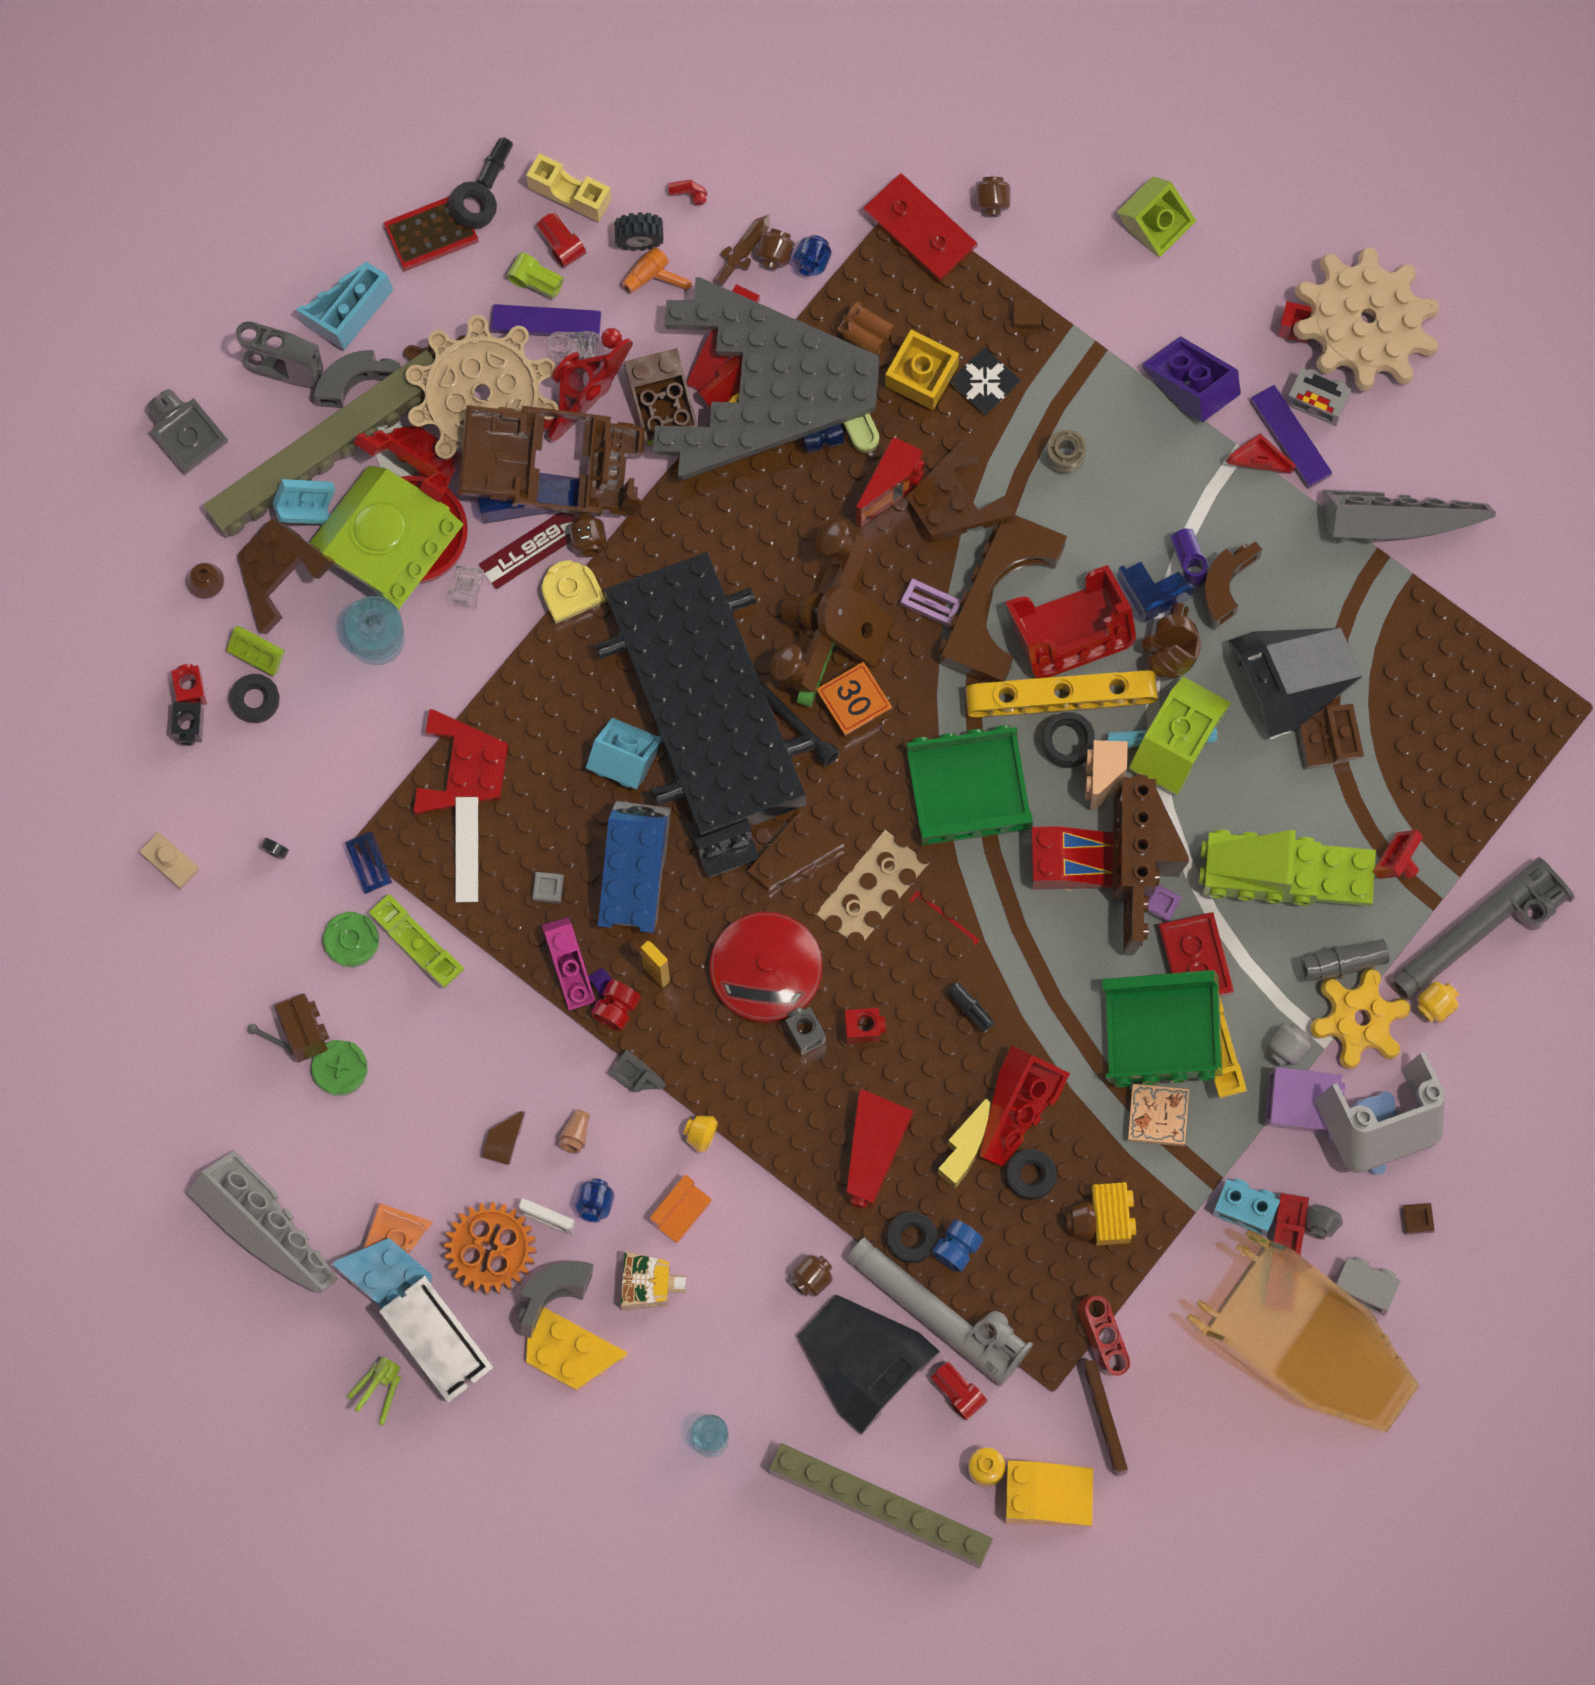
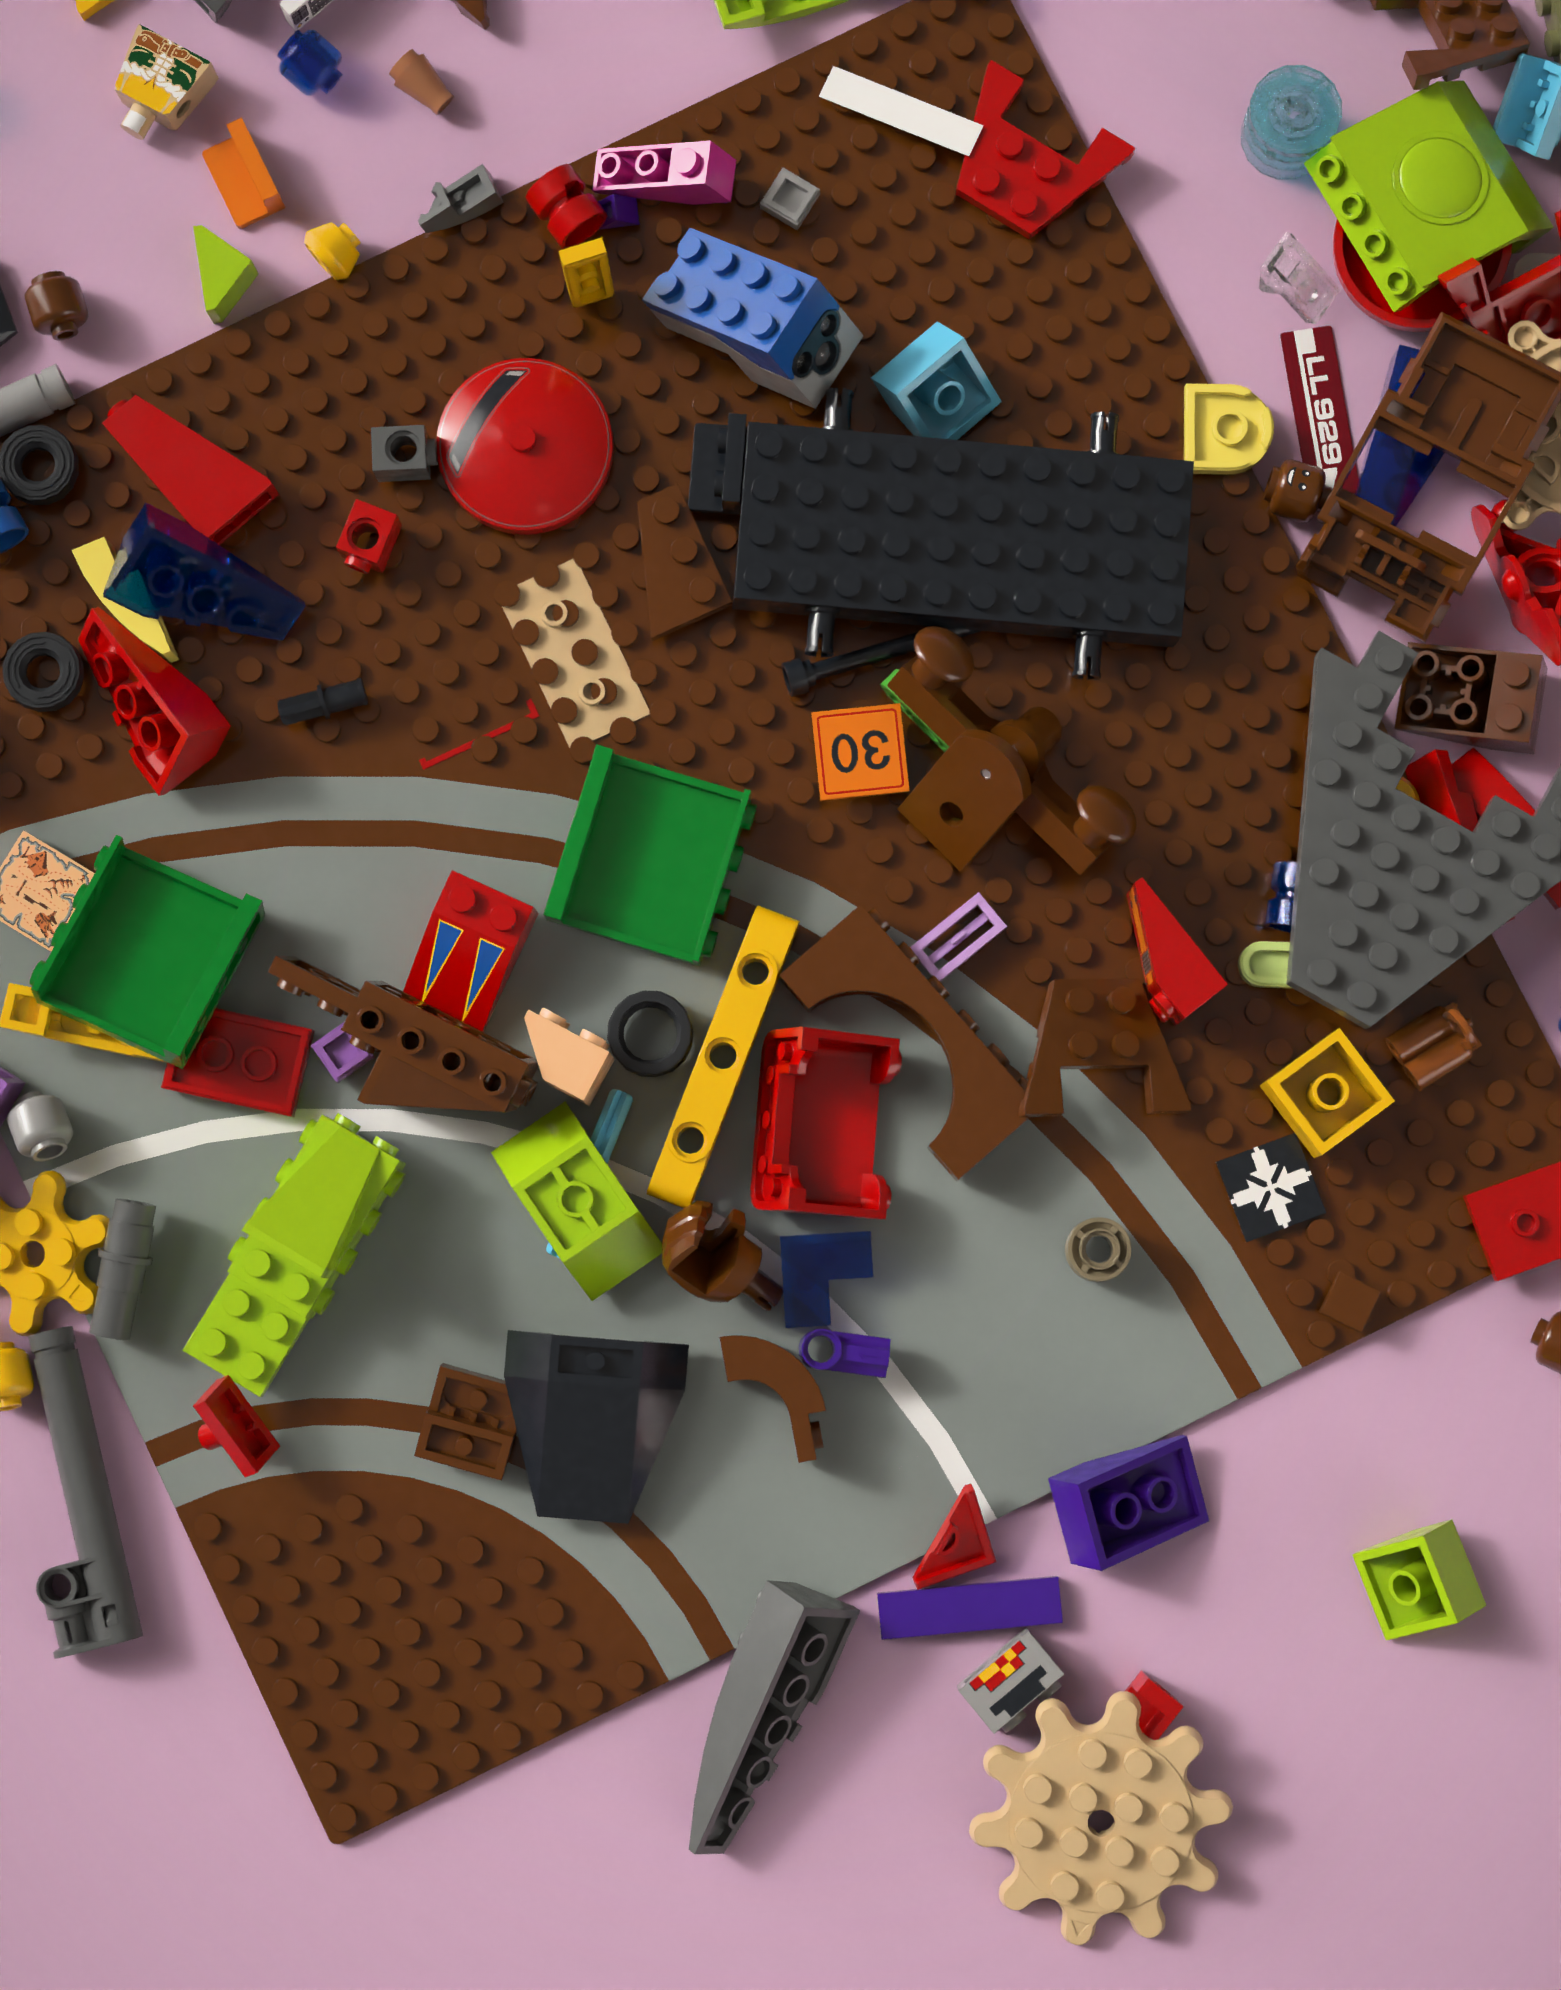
camera: 120 degrees right, 10 degrees up
(745, 1190) = (223, 273): none -> lime slope
(937, 1107) = (186, 576): none -> clear blue wedge

